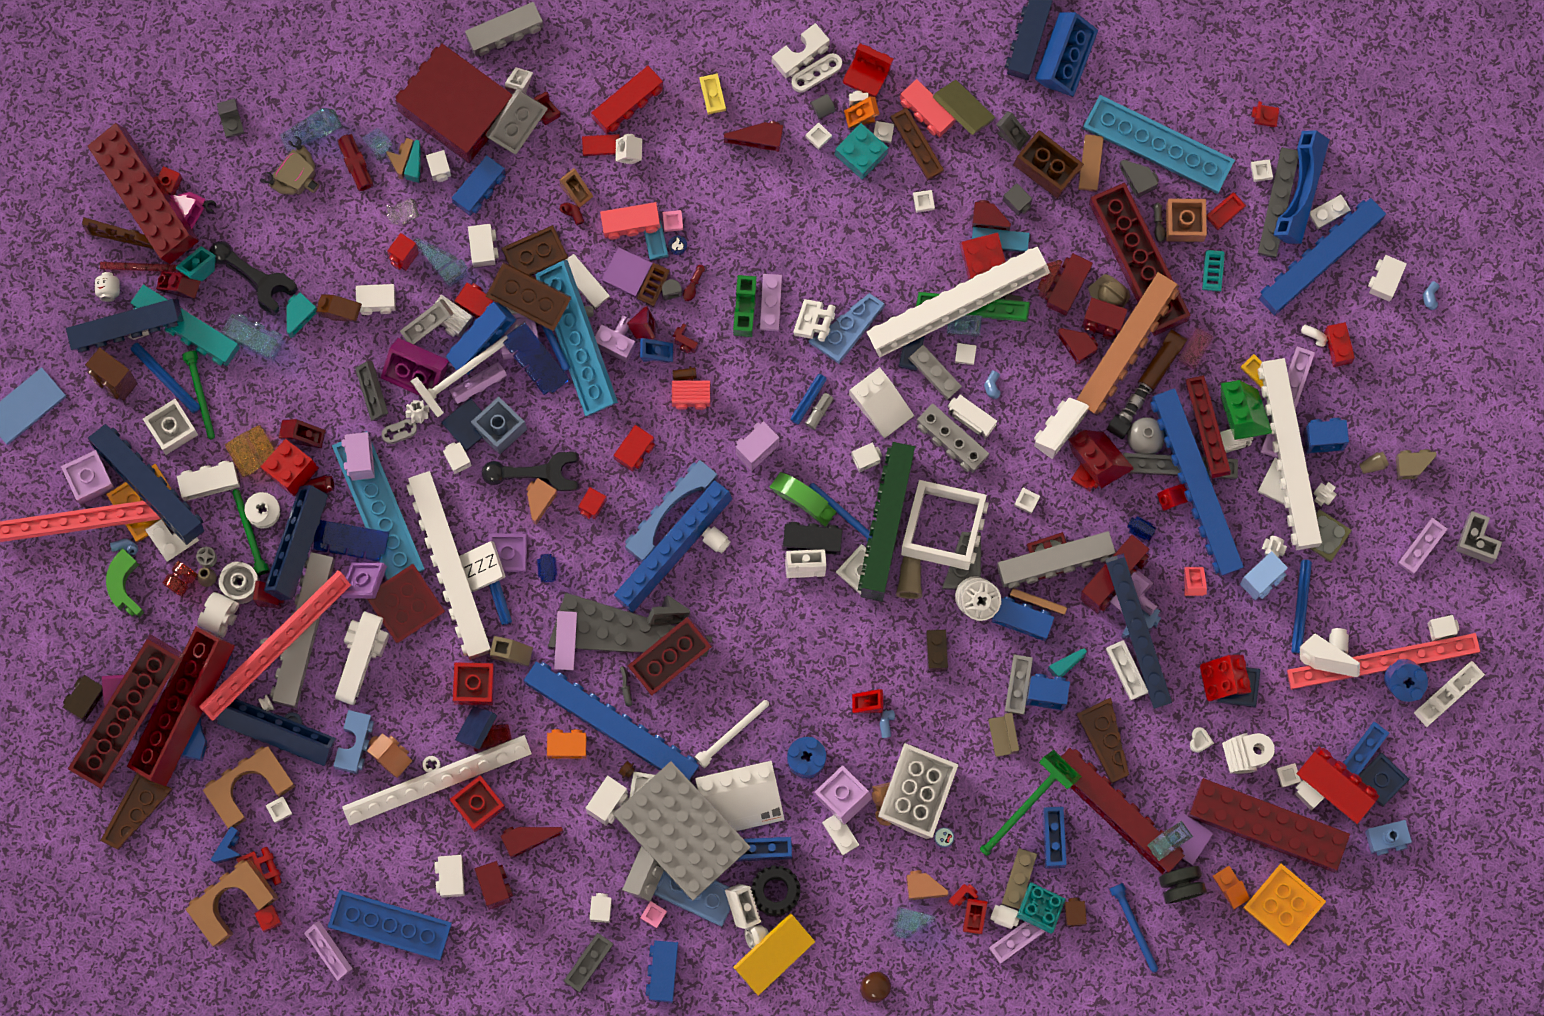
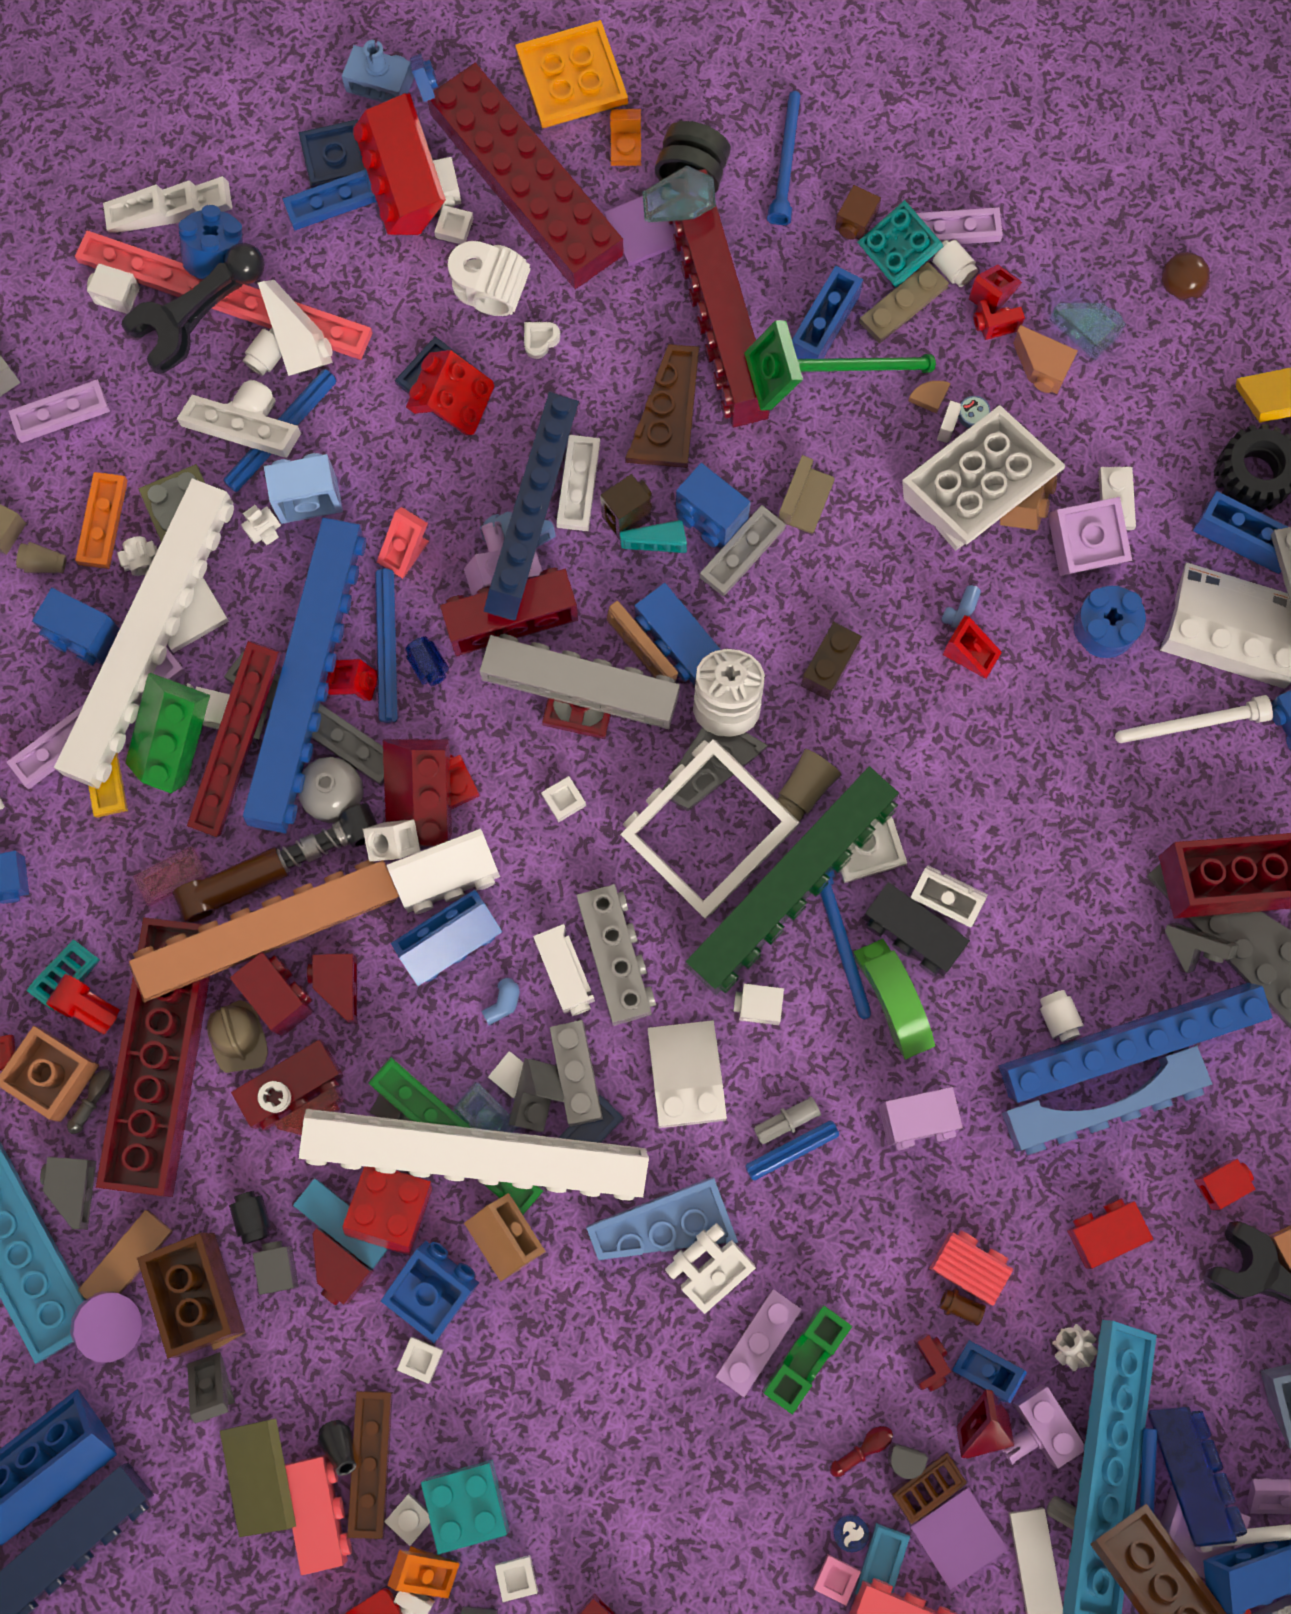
camera: 145 degrees left, 0 degrees up
(622, 385) = (1075, 1347): none -> white gear
(919, 276) = (504, 1237): none -> medium nougat brick
(937, 142) = (337, 1445): none -> black cone
(939, 233) = (430, 1290): none -> blue plate
(947, 350) = (536, 1088): none -> dark grey slope
(953, 820) = (949, 422): none -> white tile
(973, 833) = (930, 395): none -> medium nougat tile
(1039, 396) = (446, 938): none -> brick
(1045, 215) = (250, 1217): none -> black brick
(1071, 277) = (279, 1087): none -> white bush
(1078, 128) = (106, 1326): none -> medium lavender tile
(1091, 666) = (626, 505): none -> dark brown brick
(1096, 423) = (391, 840): none -> white brick
(1168, 526) = (386, 646): none -> blue axle
(1196, 260) = (75, 1000): none -> red piece
(1322, 595) = (242, 420): none -> white plate
(1358, 502) = (101, 520): none -> orange plate
(1358, 840) = (424, 76): none -> blue plate
(1396, 625) = (179, 317): none -> black piece

